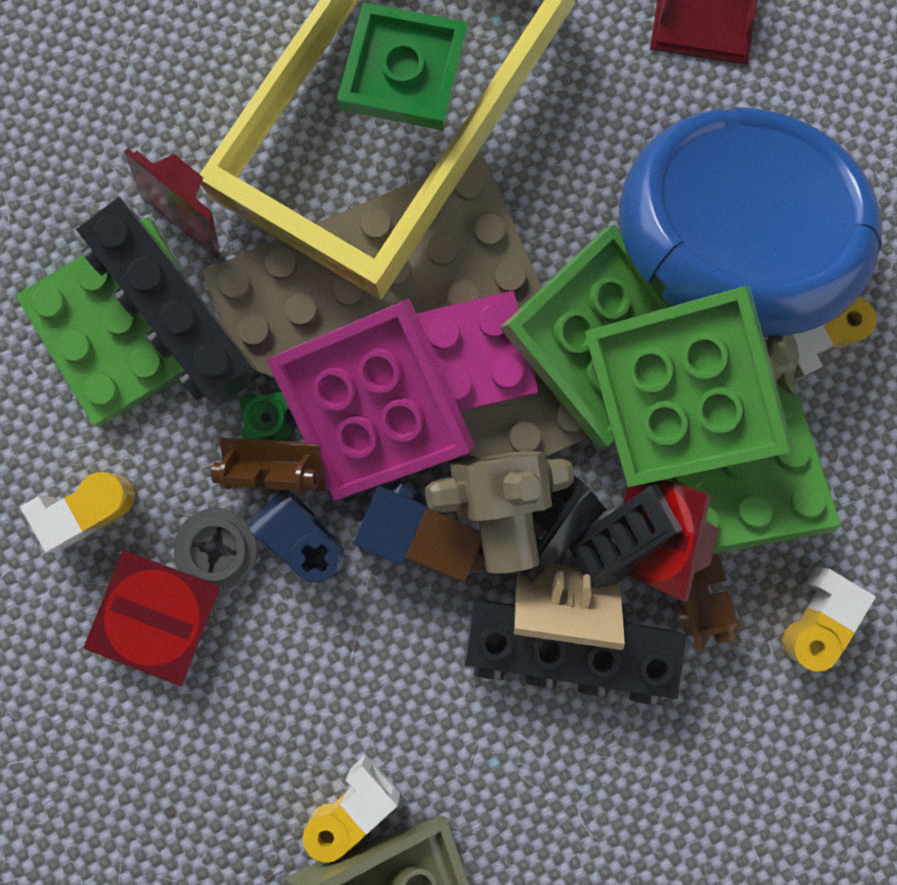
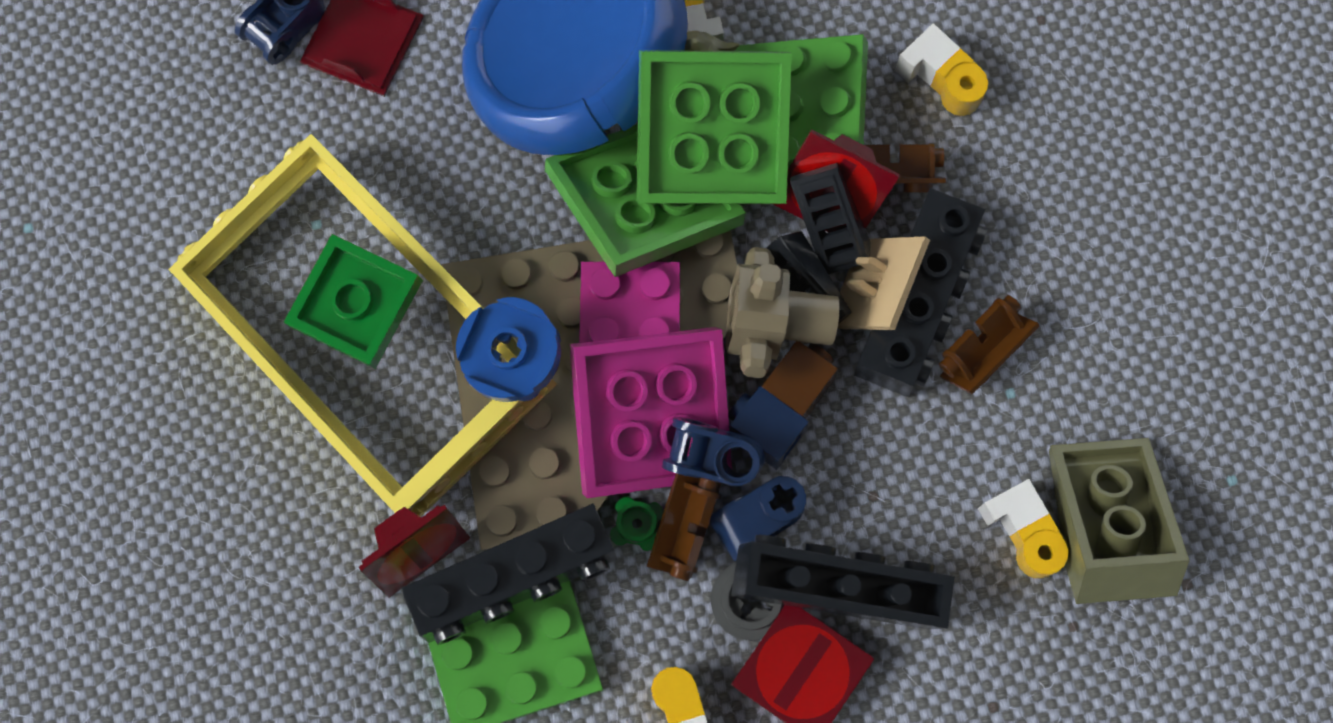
camera: 65 degrees left, 10 degrees down
(236, 639) = (843, 585): none -> black brick
(338, 472) = (709, 452): none -> dark blue piece
(366, 213) = (496, 324): none -> blue plate
(526, 731) = (976, 358): none -> reddish brown hinge

